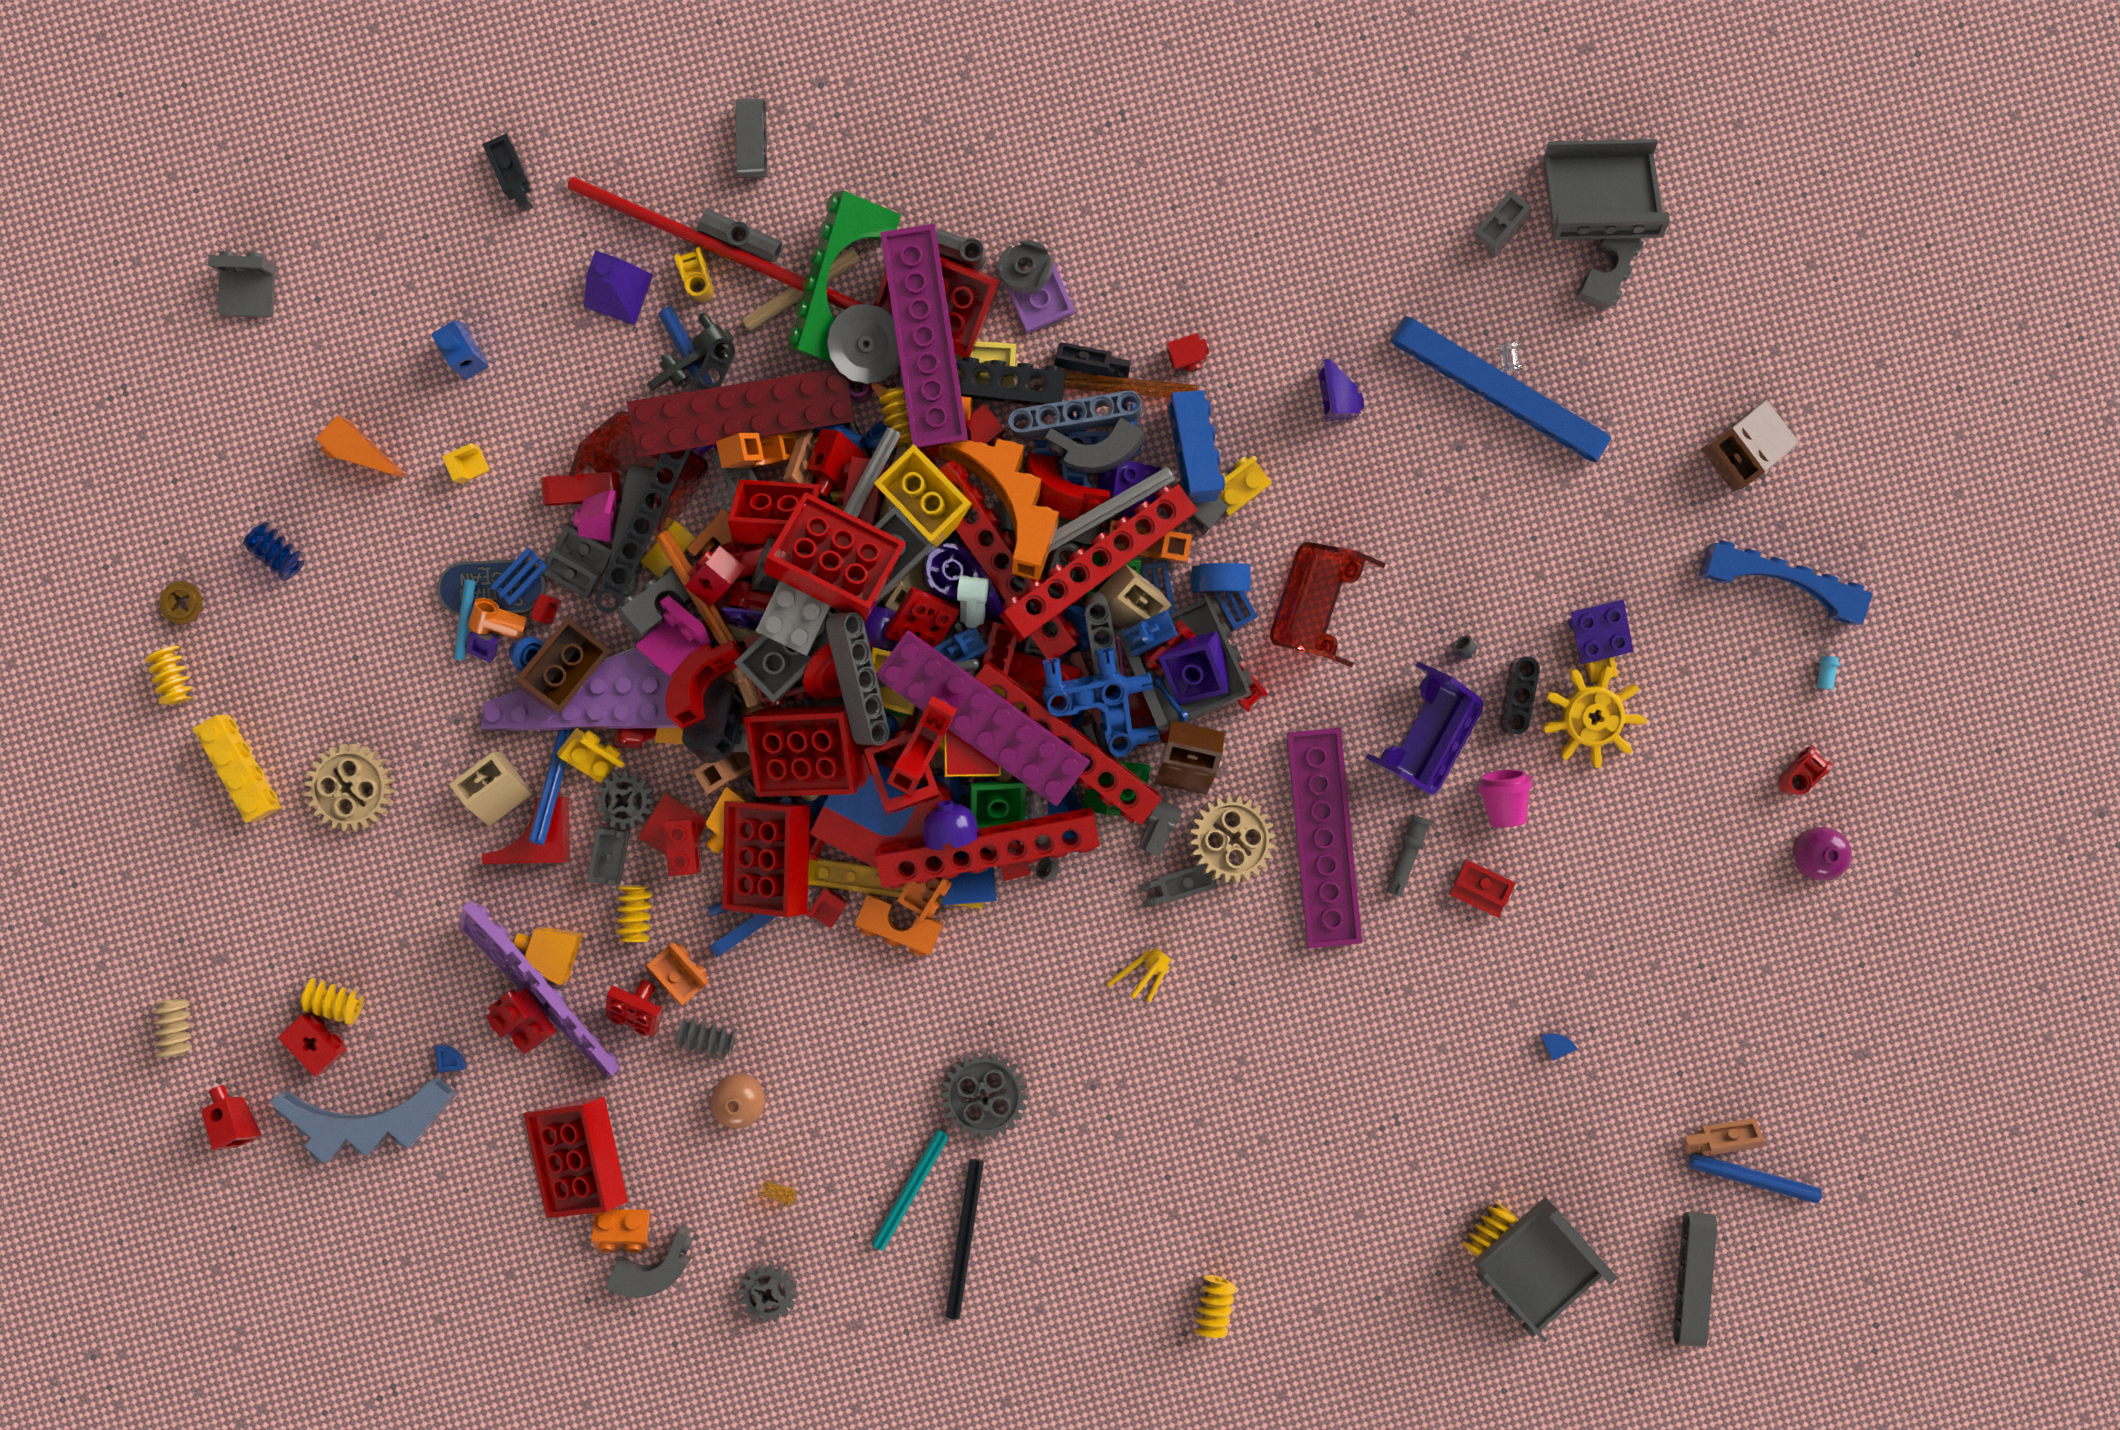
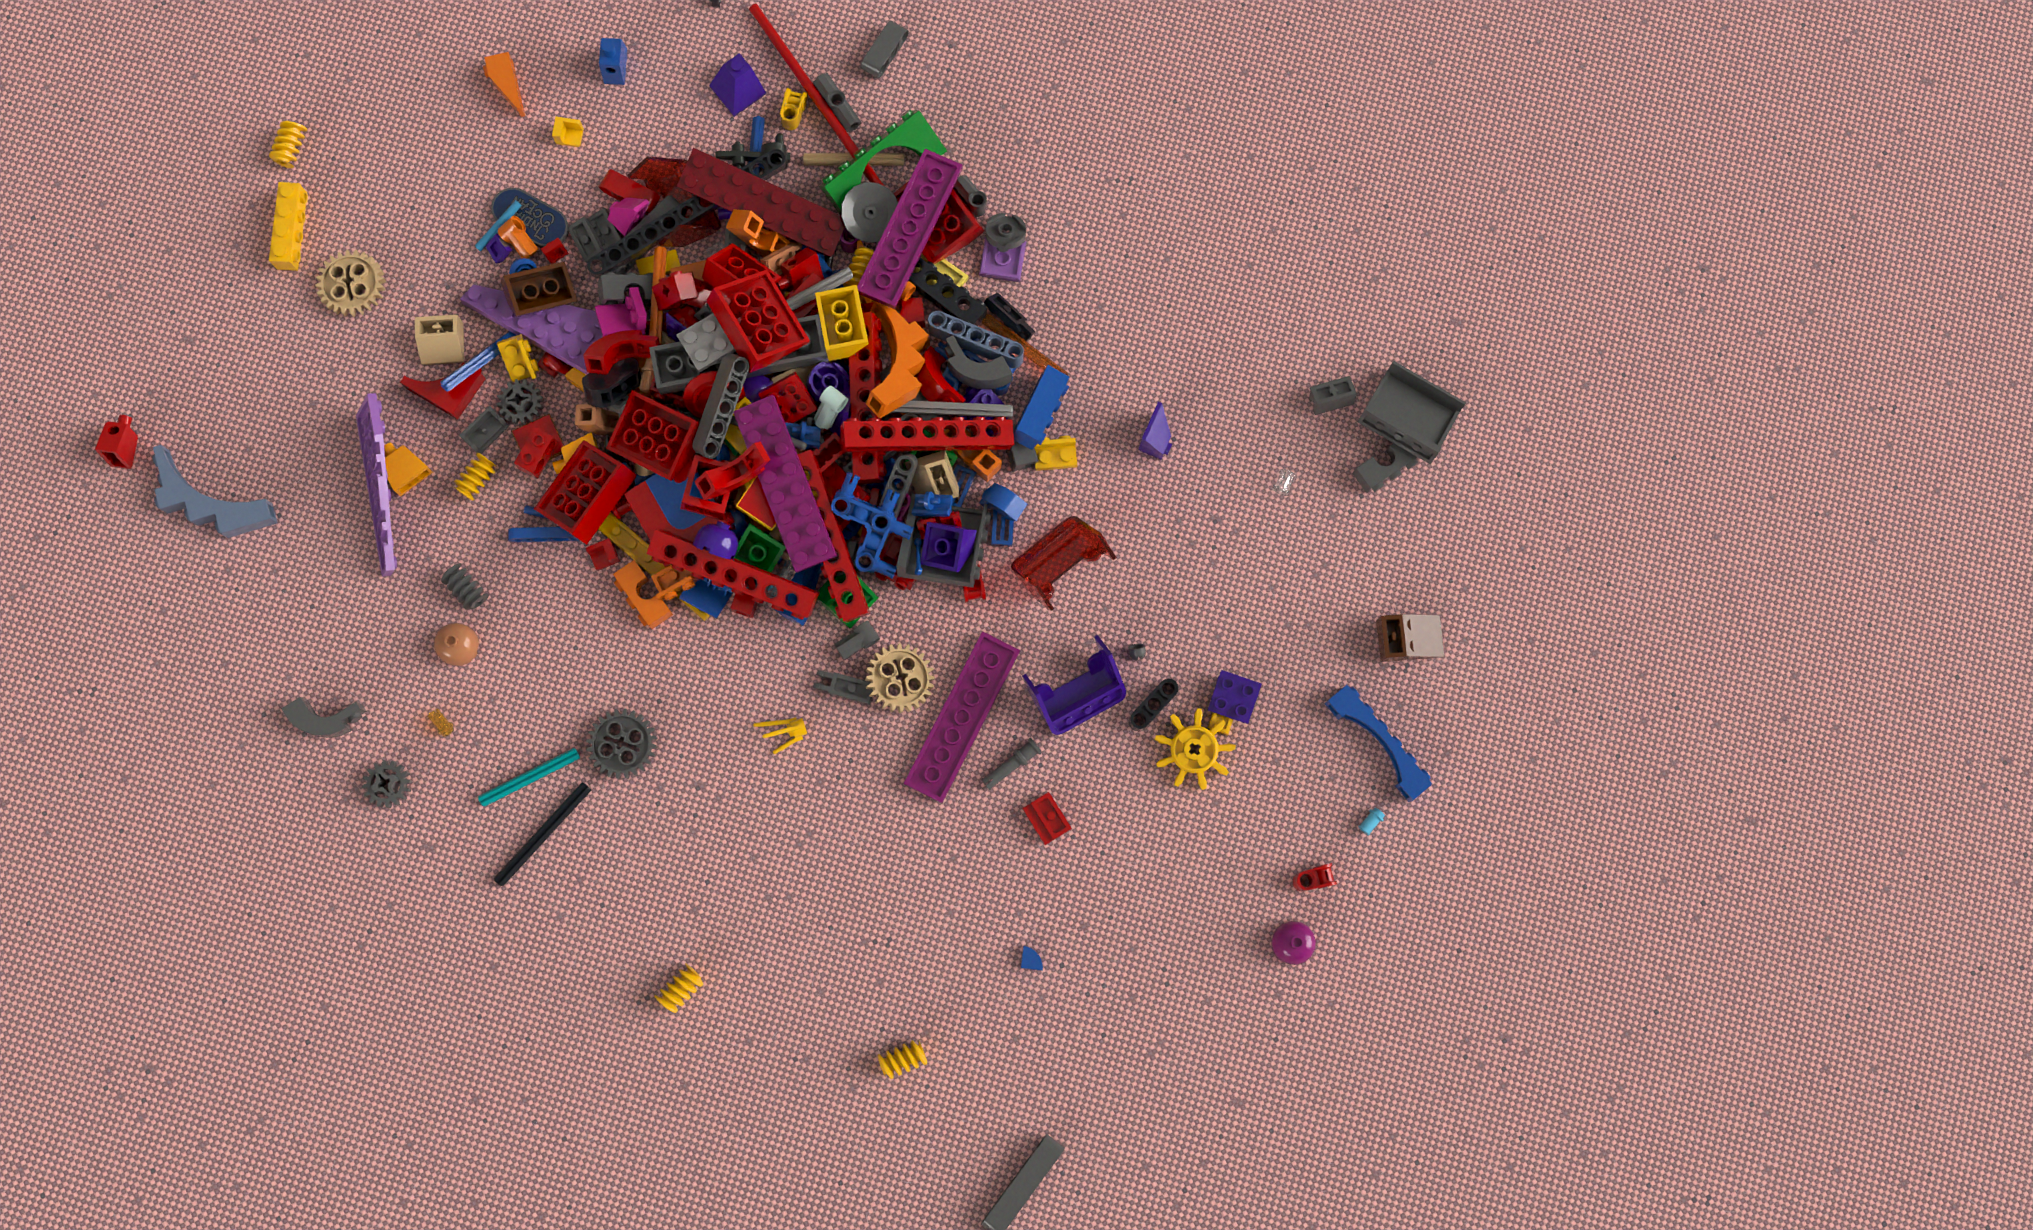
camera: 25 degrees right, 10 degrees down
(169, 602) = (322, 98): pearl gold gear -> none
(173, 1027) = (125, 361): tan piece -> none
(273, 552) = (409, 109): clear blue piece -> none
(300, 1038) = (201, 421): red brick -> none
(331, 1003) = (239, 410): yellow piece -> none
(449, 1059) = (288, 496): blue tile -> none
(503, 592) = (550, 213): blue tile -> none
(521, 1018) = (353, 497): red plate -> none
(575, 1158) = (324, 612): red slope -> none
(621, 1230) = (319, 680): orange bracket -> none
(634, 1009) = (430, 538): red plate -> none
(677, 973) = (476, 534): orange bracket -> none
(1041, 870) = (764, 622): dark grey hinge -> none
(1187, 353) = (1075, 349): red brick -> none
(1190, 757) = (905, 603): reddish brown slope -> none
(1500, 389) = (1266, 499): blue beam -> none
(1505, 796) = (1100, 765): dark pink piece -> none
(1540, 1267) = (920, 1104): dark grey panel -> none
(1725, 1138) = (1105, 1097): nougat hinge -> none
(1755, 1178) = (1109, 1141): blue axle -> none

